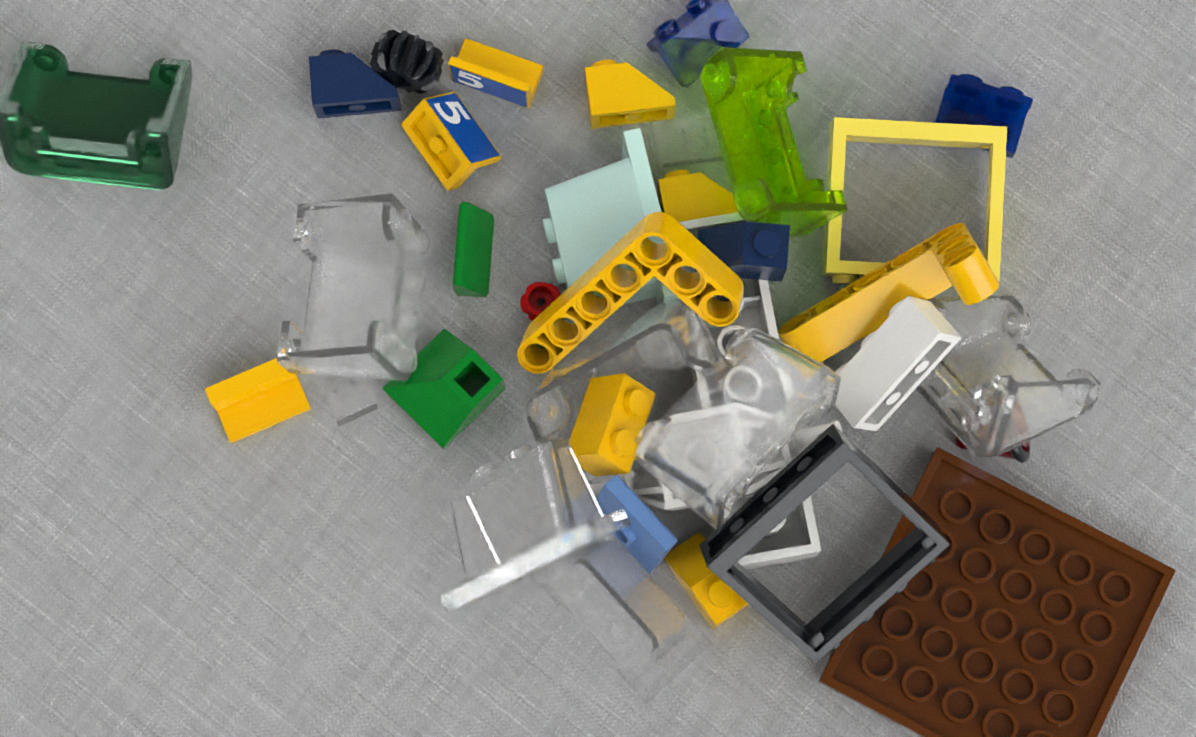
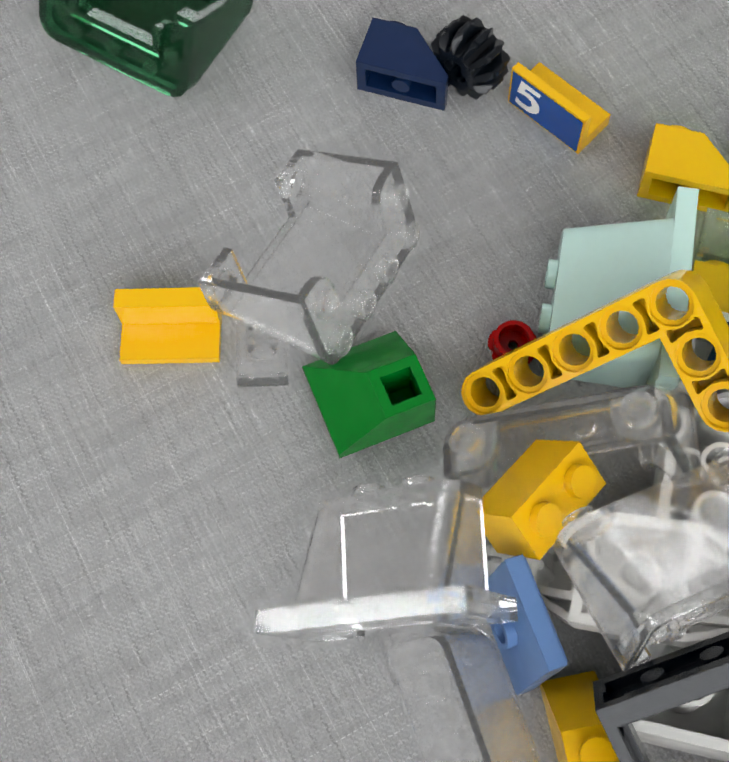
camera: 30 degrees right, 10 degrees down
(449, 138) = (482, 149): yellow panel -> none
(473, 251) = (459, 265): green slope -> none

